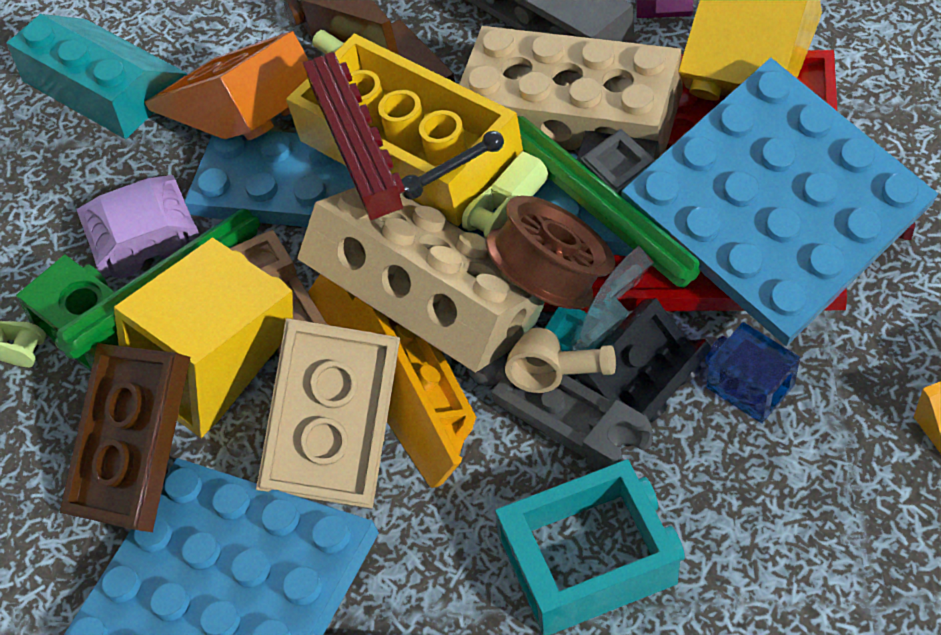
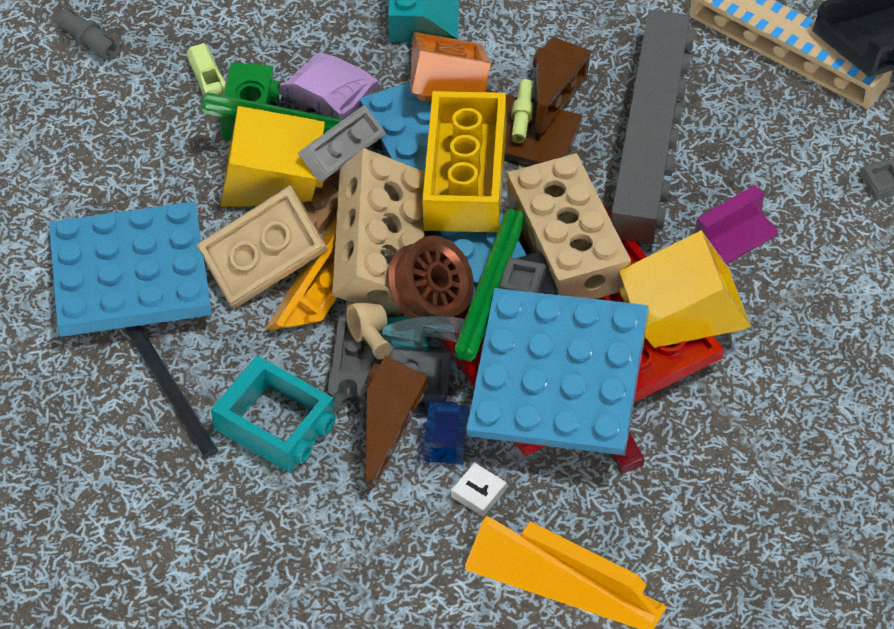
camera: 50 degrees right, 0 degrees up
(125, 436) = (179, 165): reddish brown tile -> none
(257, 241) = (341, 143): none -> light grey tile
(353, 136) = (418, 134): dark red piece -> none
(413, 185) = (407, 184): black hinge -> none
(520, 178) = (467, 238): yellowish green bar -> none
(700, 409) = (391, 403): none -> reddish brown slope
(848, 387) = (478, 489): none -> white tile

